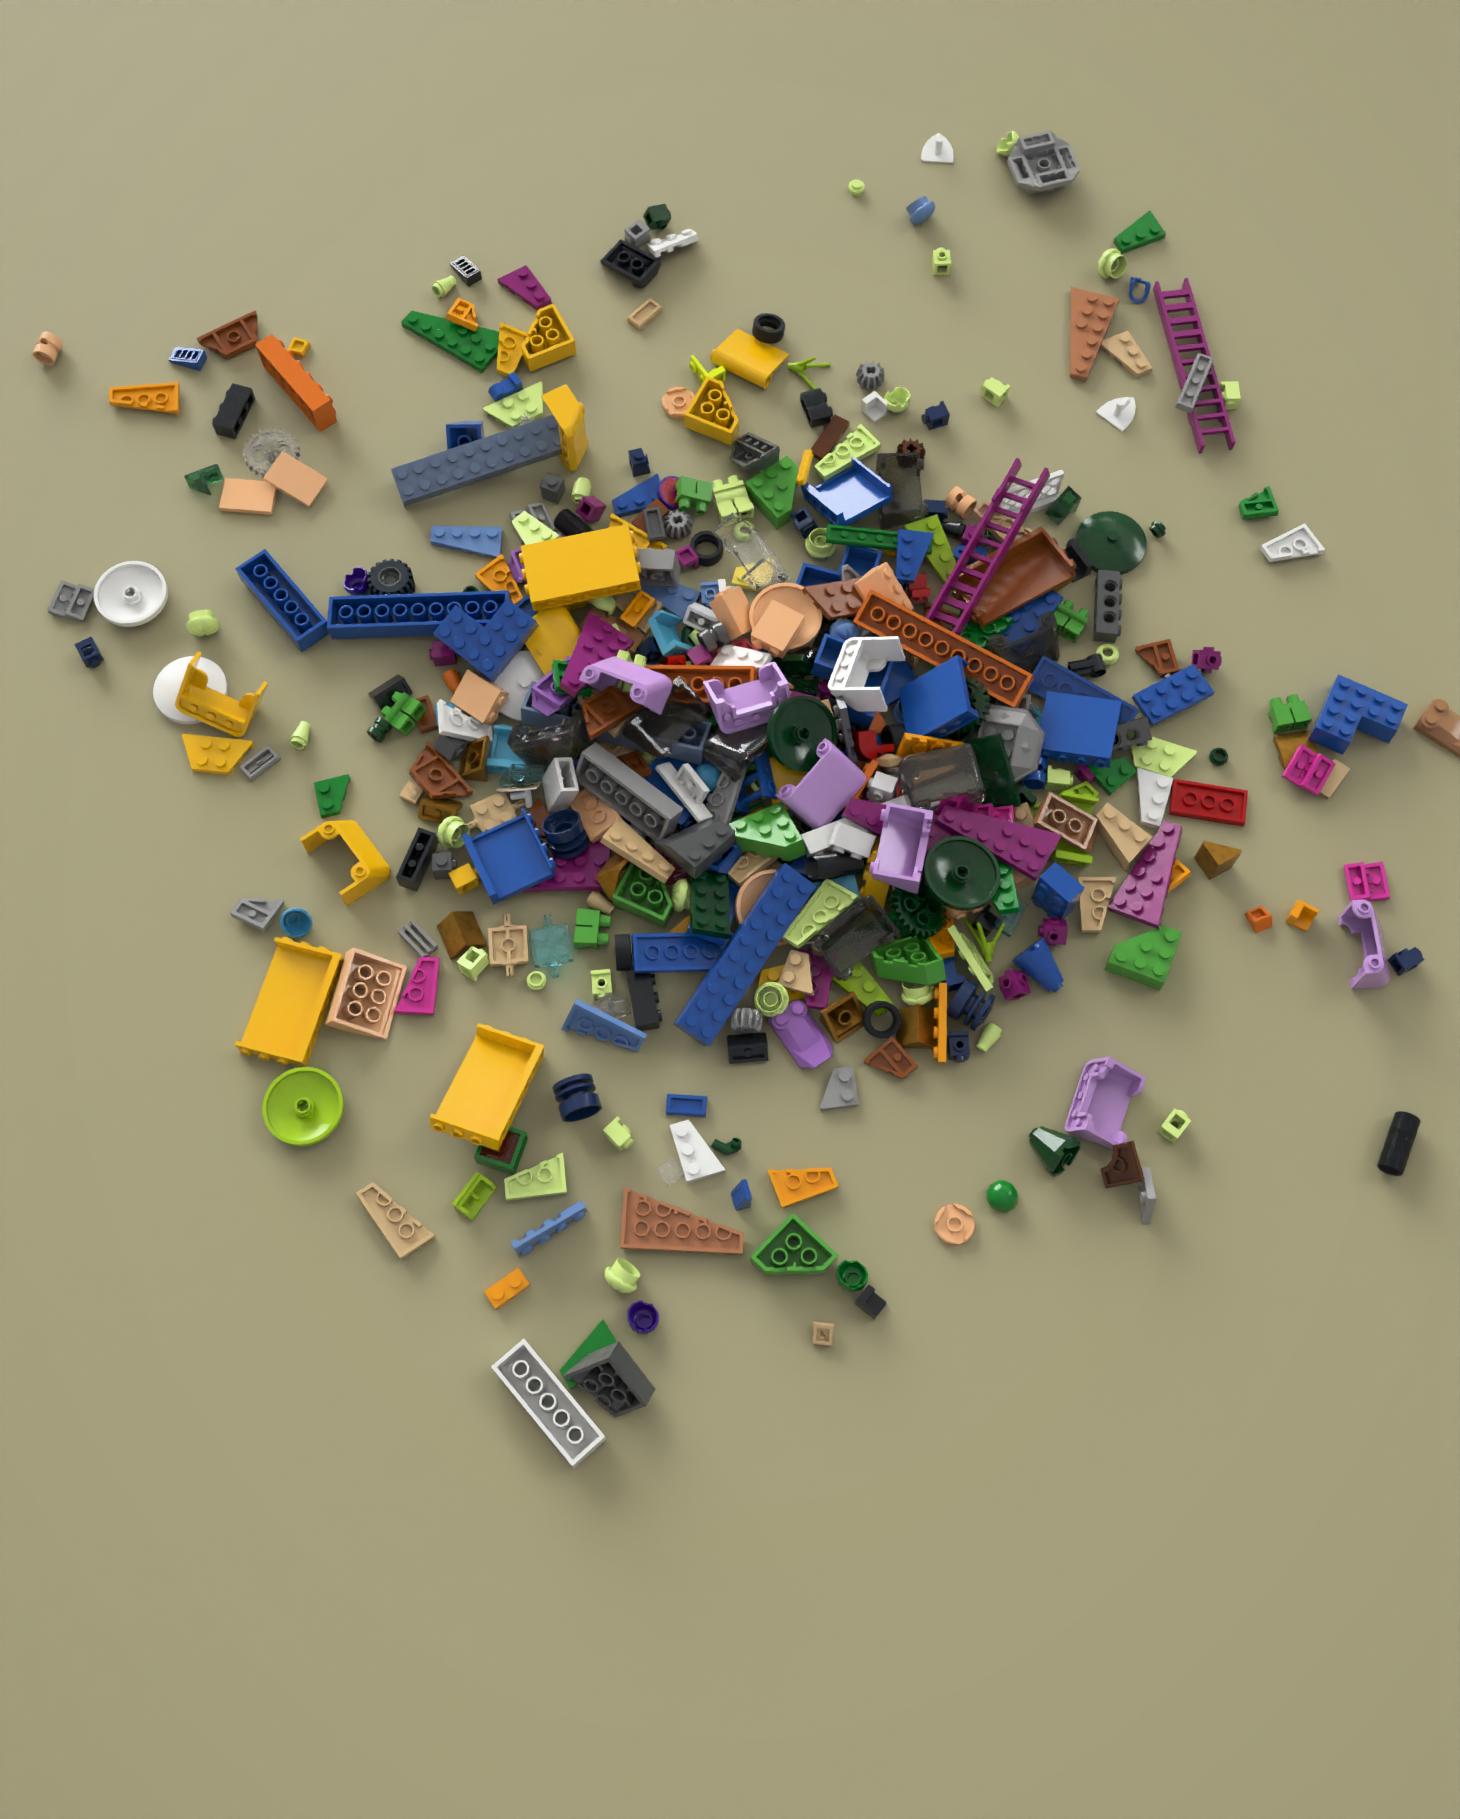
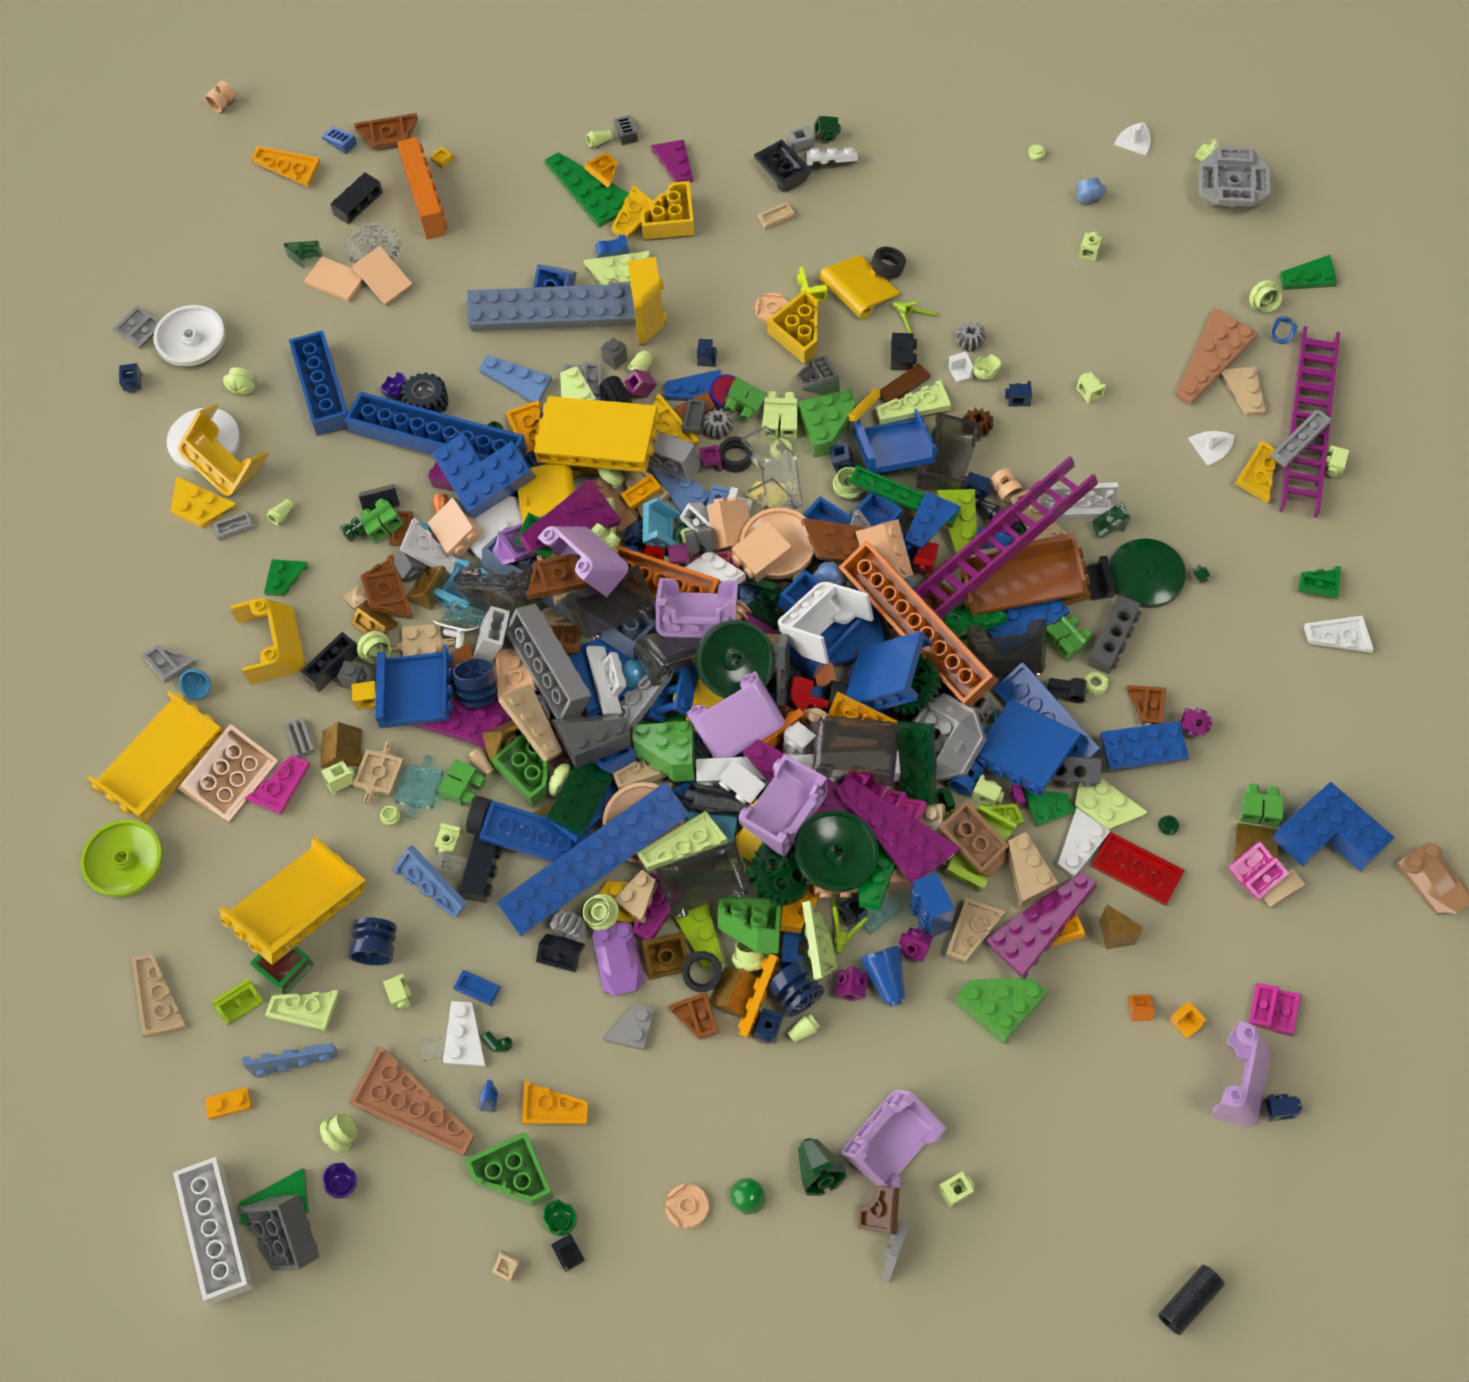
camera: 25 degrees right, 5 degrees down
(1168, 425) = (1258, 472): none -> yellow wing

